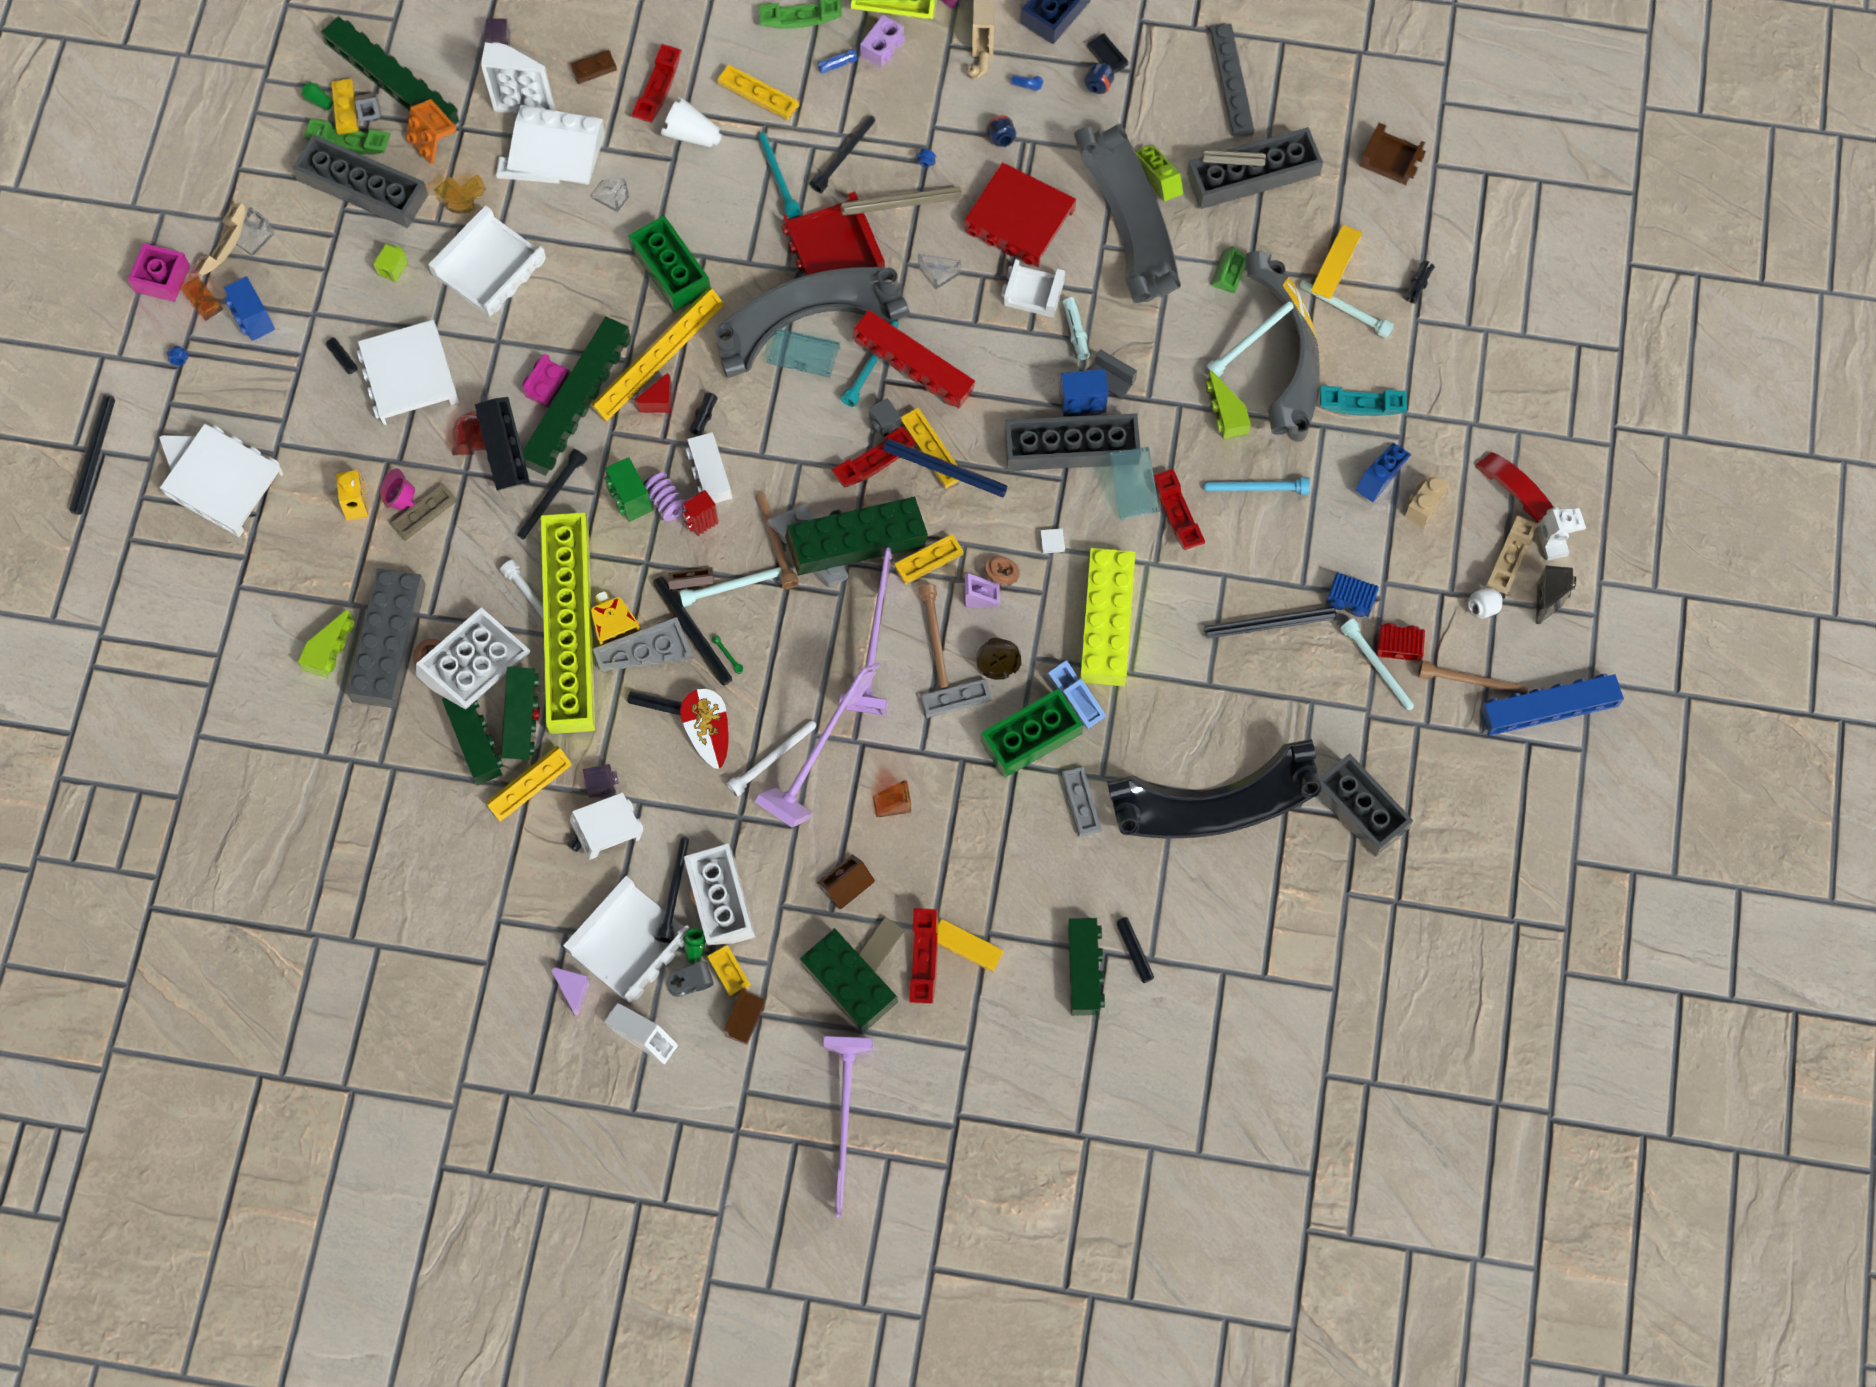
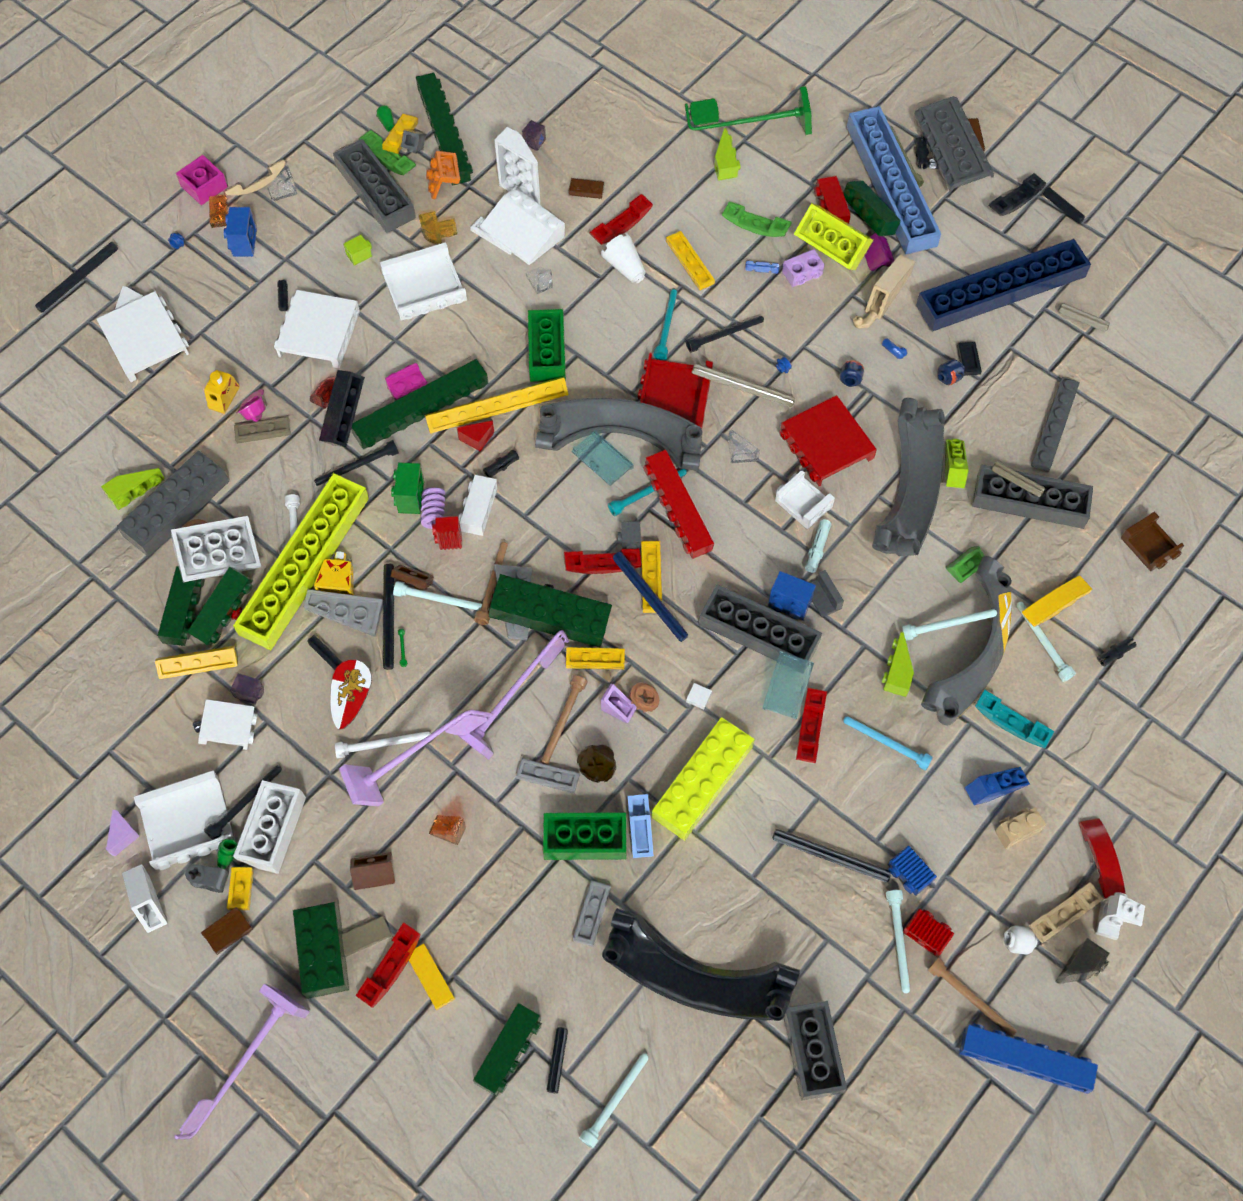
camera: 30 degrees right, 5 degrees down
(1208, 998) = (590, 1135): none -> light aqua piece

